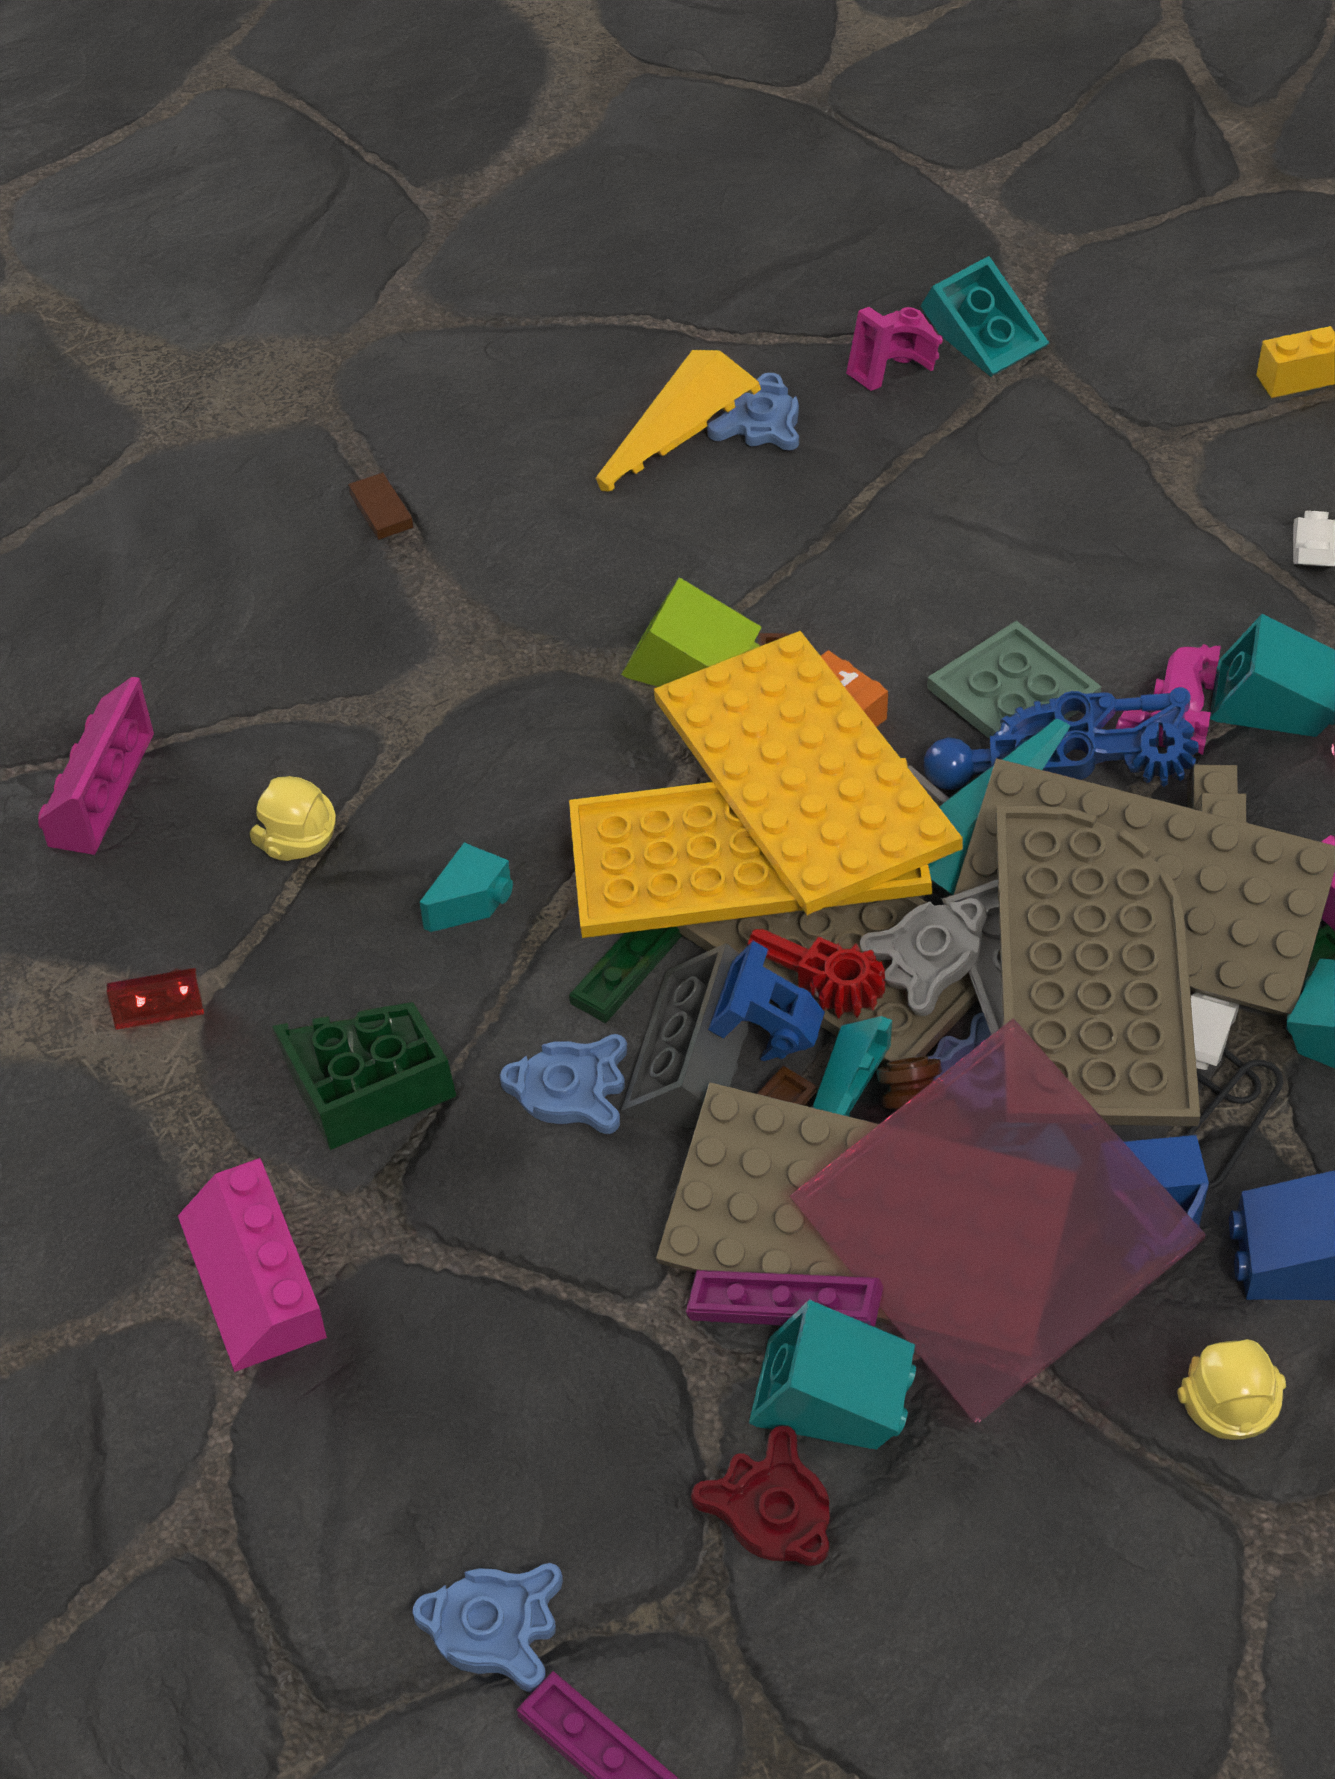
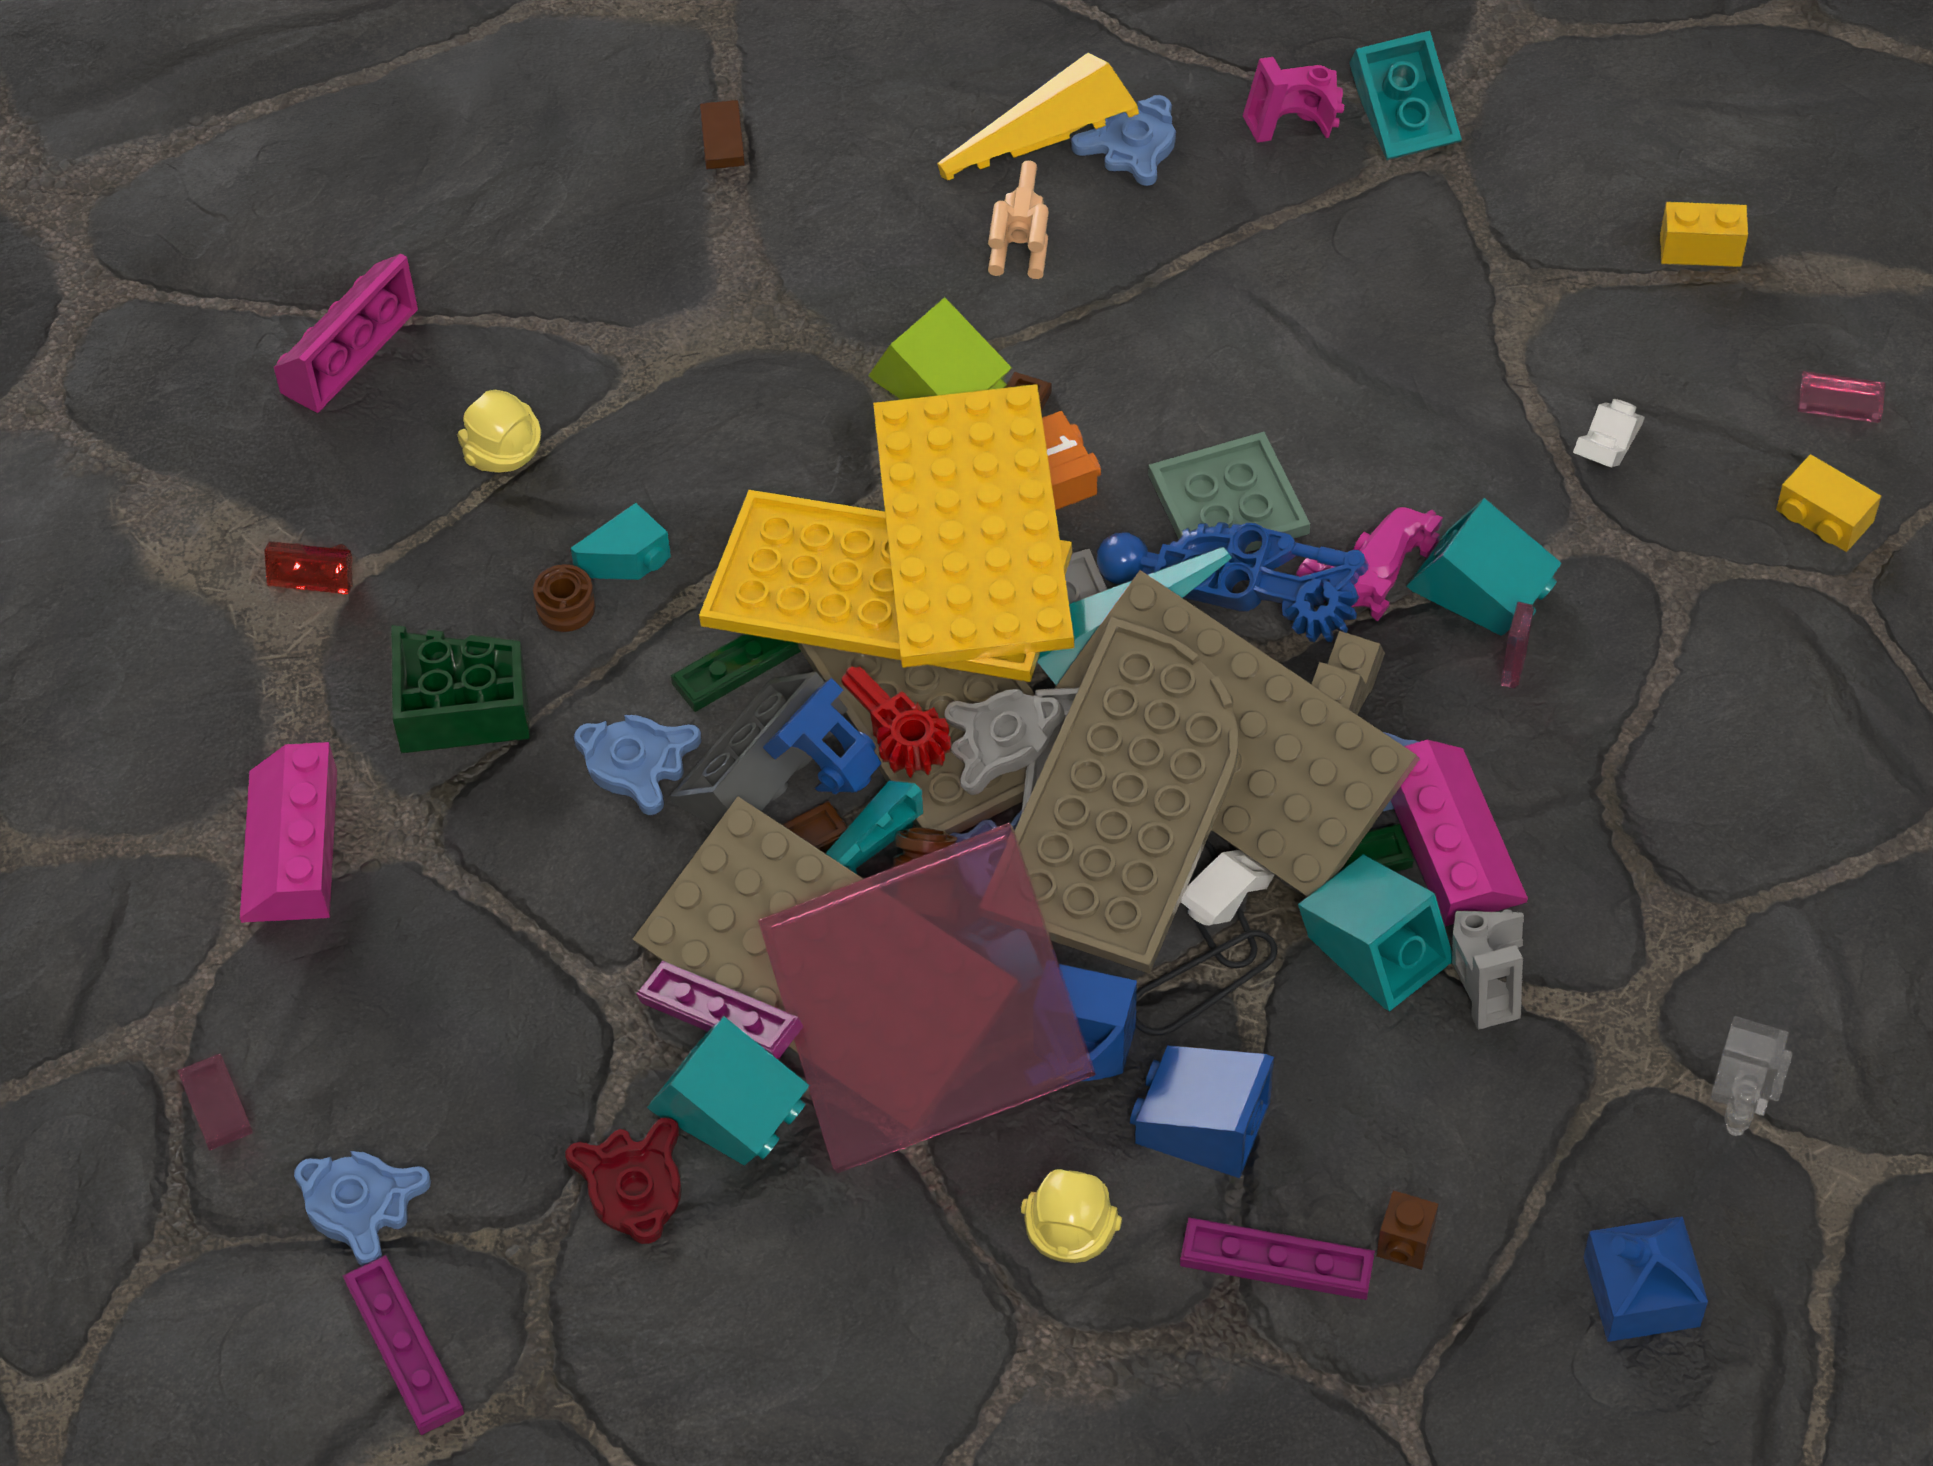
camera: 20 degrees right, 5 degrees up
(290, 1569) = (215, 1101): none -> clear pink tile
(429, 952) = (564, 598): none -> reddish brown wheel
(702, 504) = (1020, 220): none -> light nougat plant

